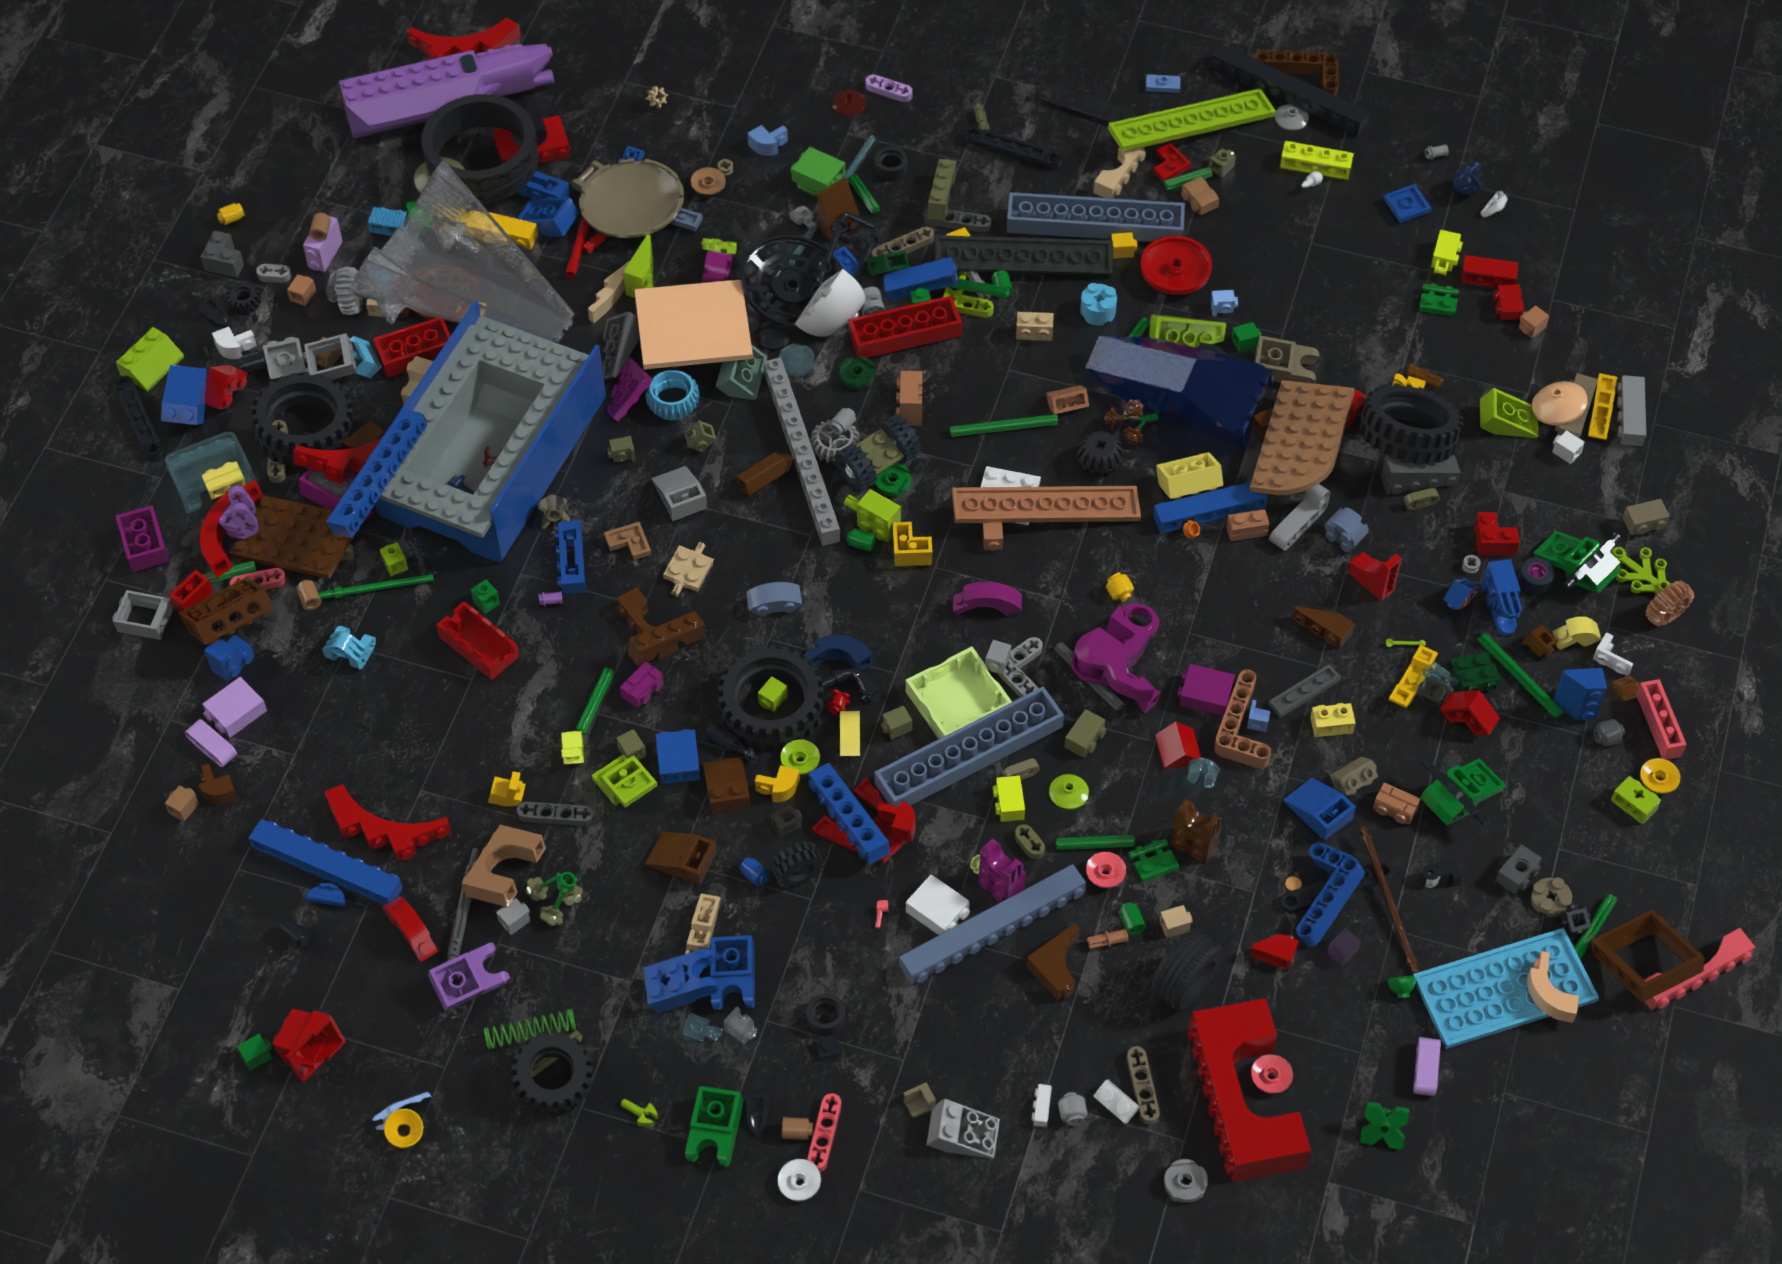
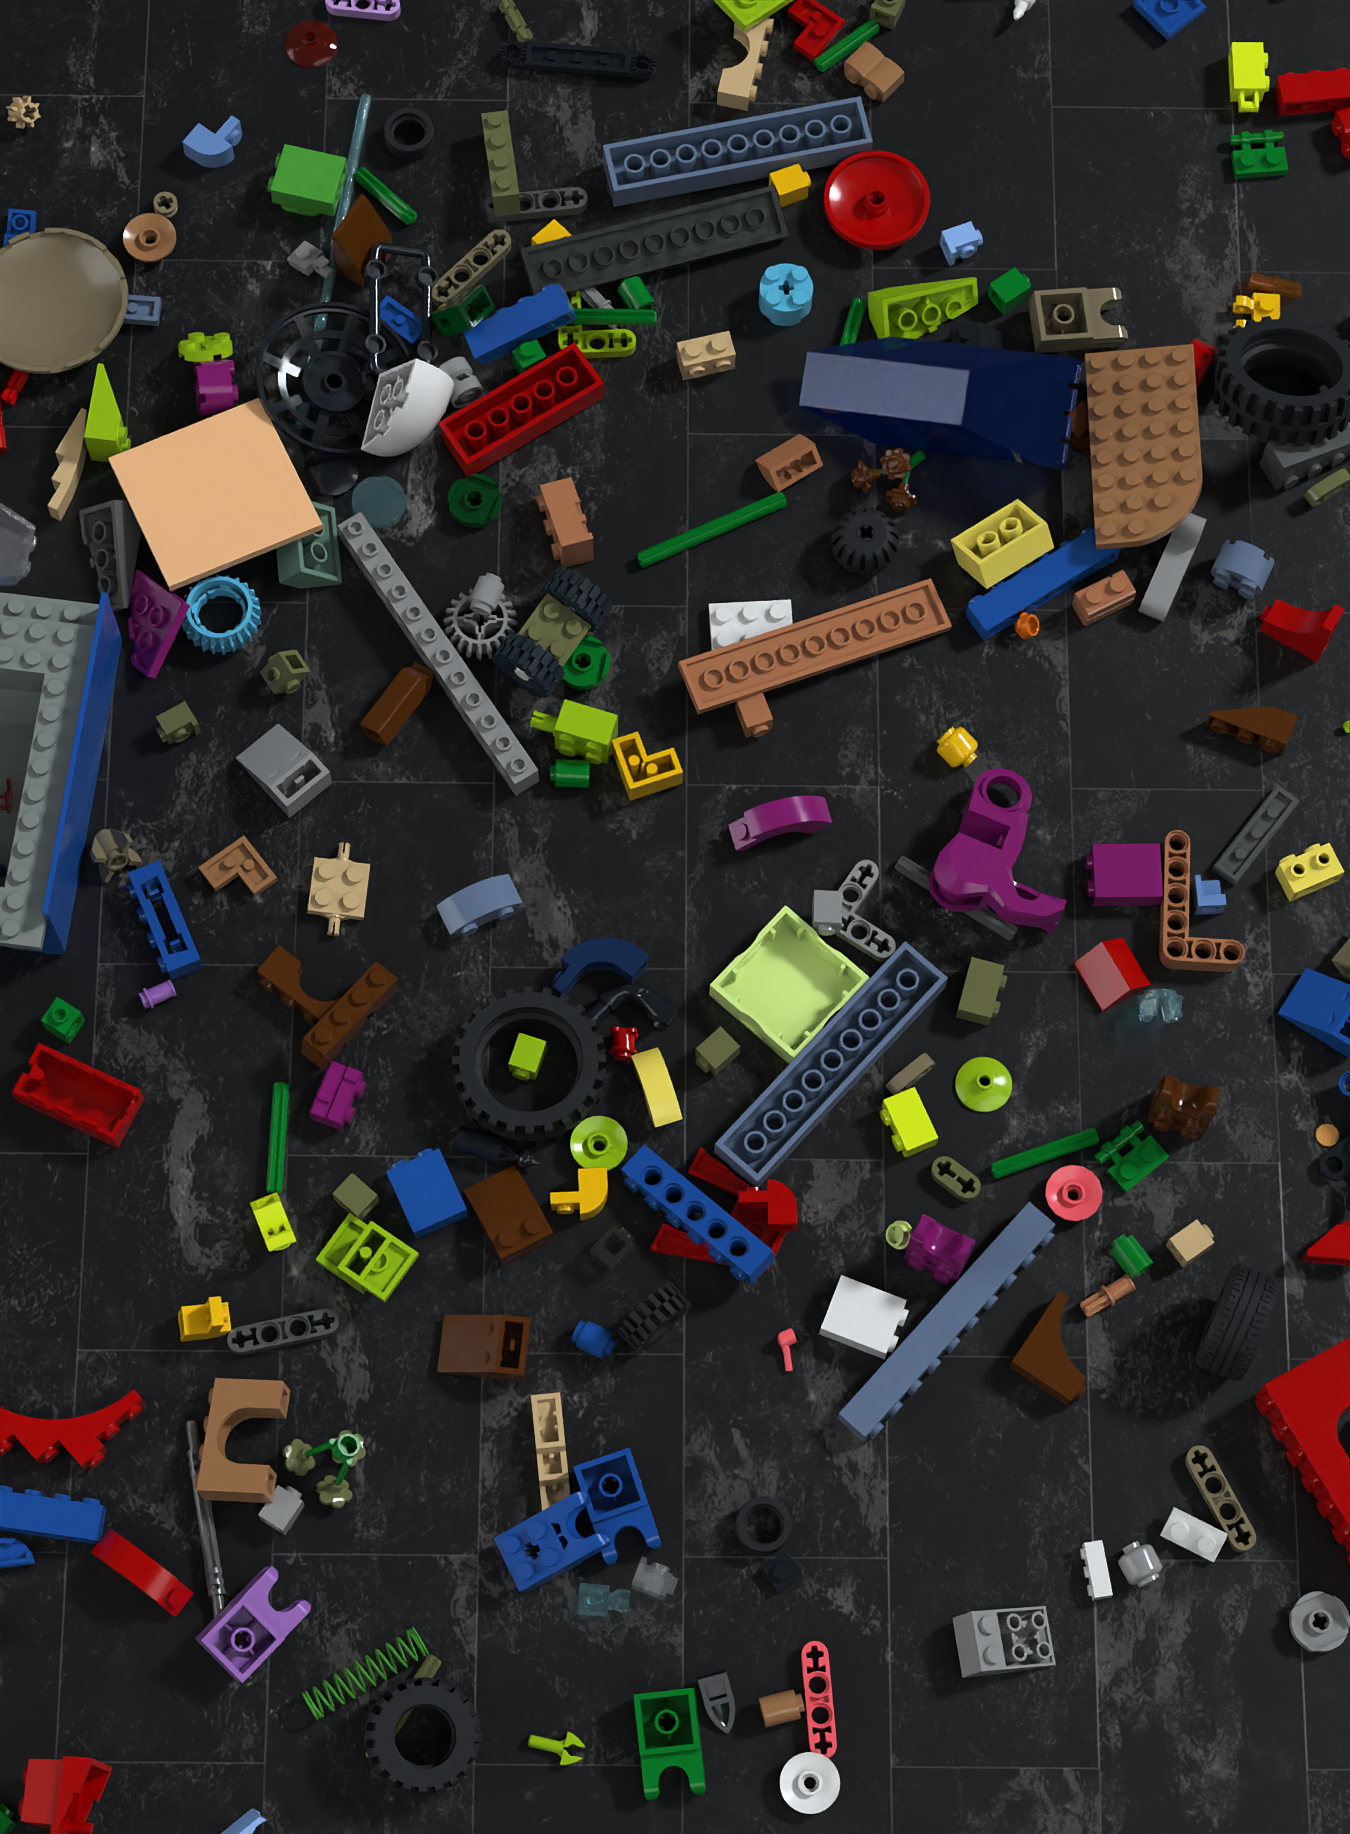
camera: 20 degrees left, 15 degrees up
(919, 1100) = (932, 1615): dark tan panel -> none

